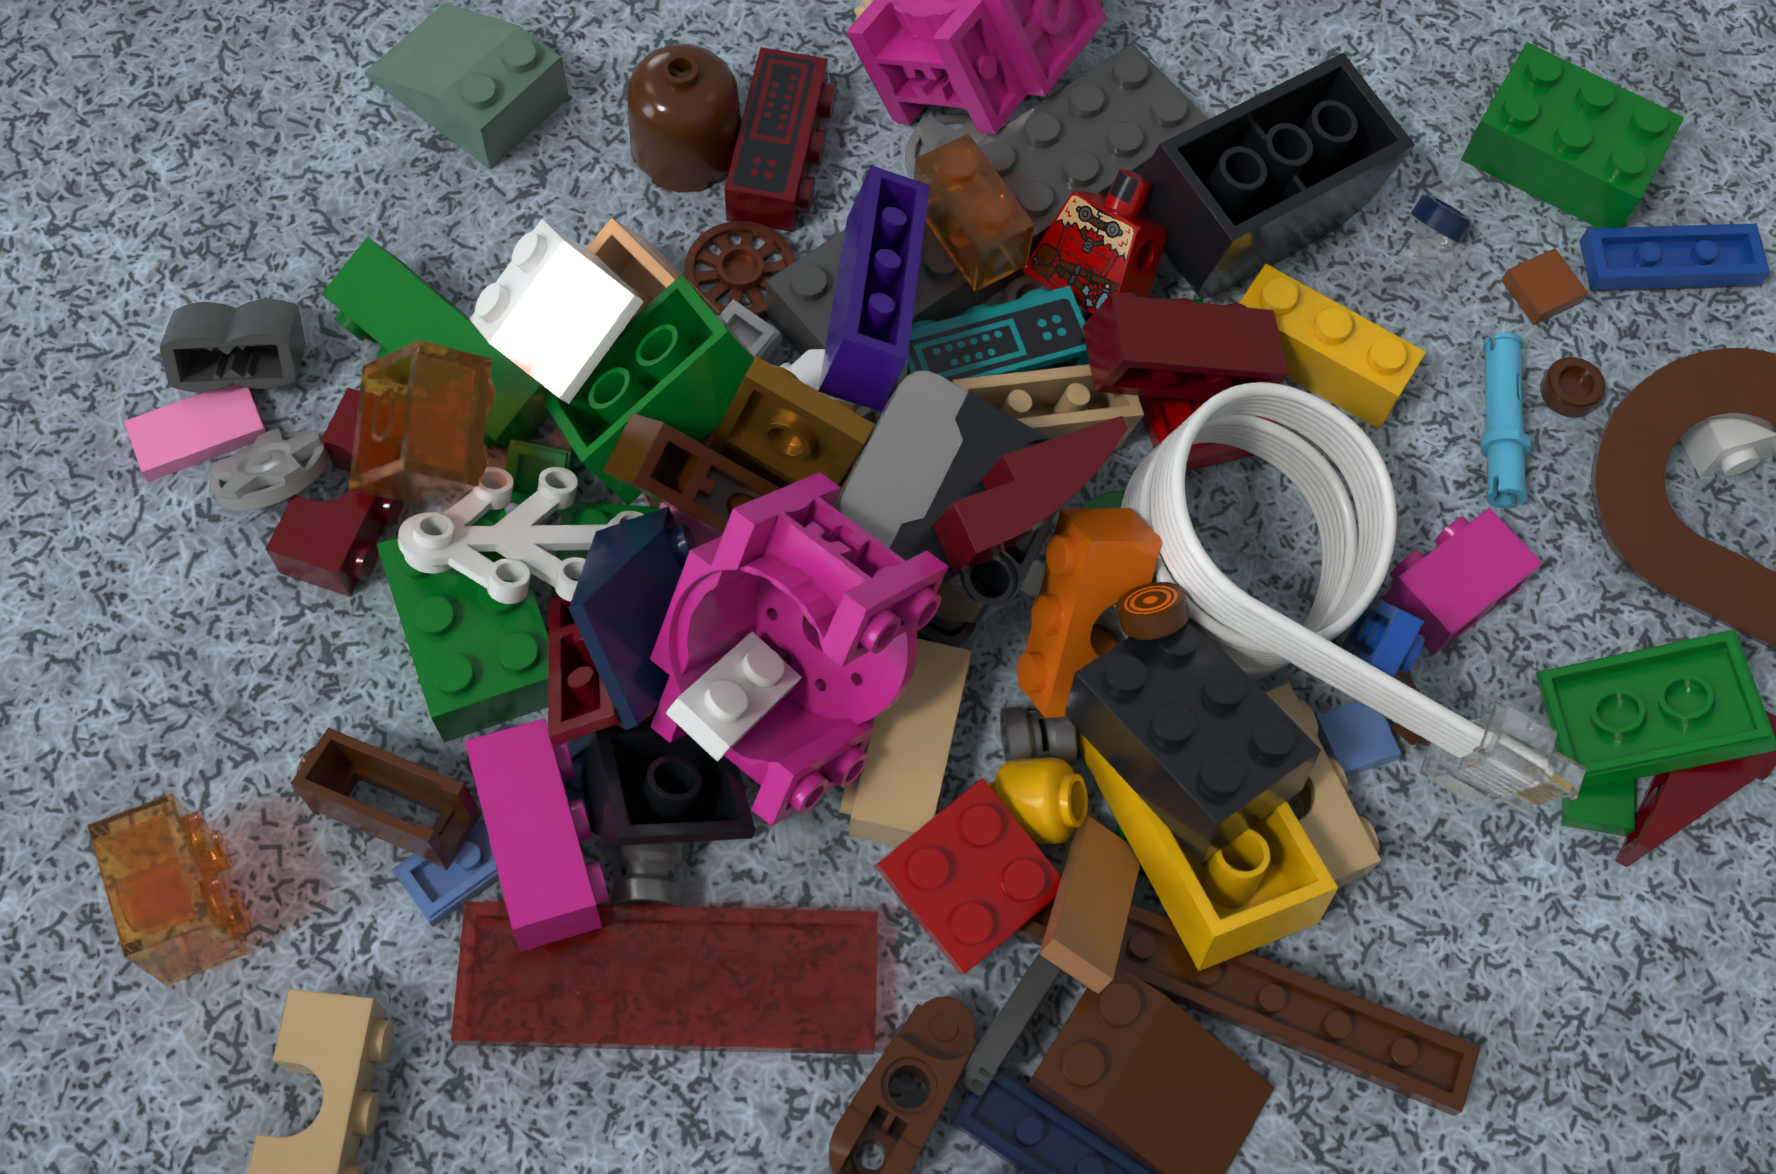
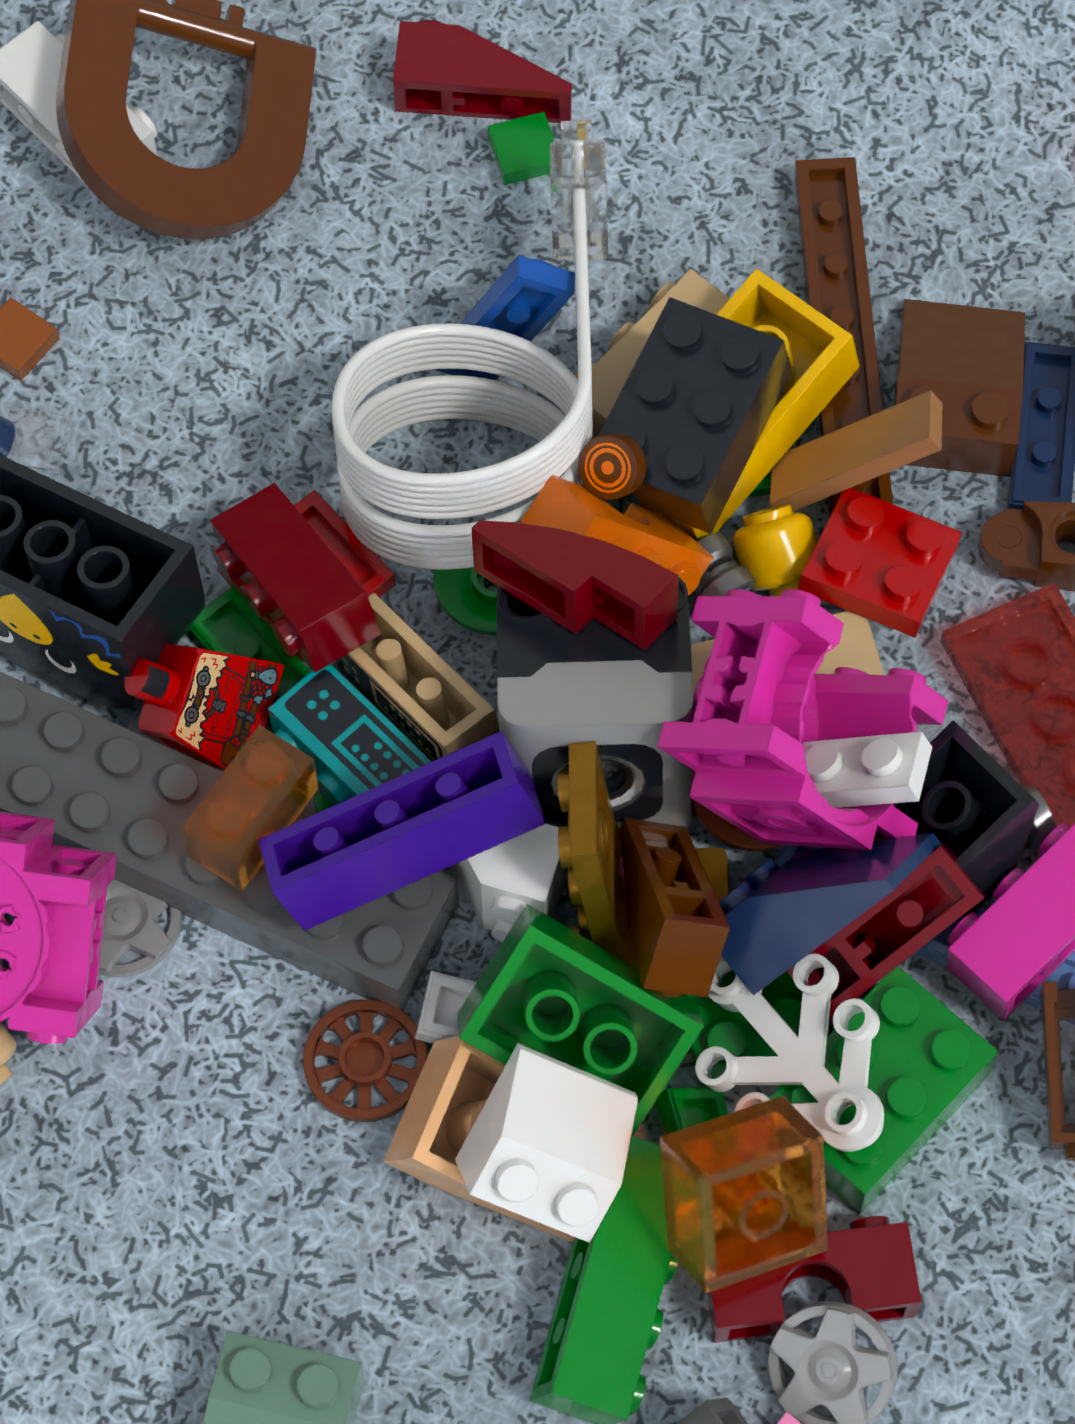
camera: 110 degrees left, 0 degrees up
(683, 117) = (232, 1208): reddish brown cylinder -> none
(779, 140) = (197, 1087): dark red brick -> none
(1009, 1025) = (974, 487): dark grey tile -> none
(1335, 348) = (199, 472): yellow brick -> none
(1357, 737) = (560, 337): medium blue tile -> none
(1461, 578) = (376, 294): dark pink brick -> none
(1505, 441) = (190, 323): medium azure pin -> none
(1572, 387) = (119, 283): reddish brown tile -> none
(1657, 709) = (441, 117): green tile -> none

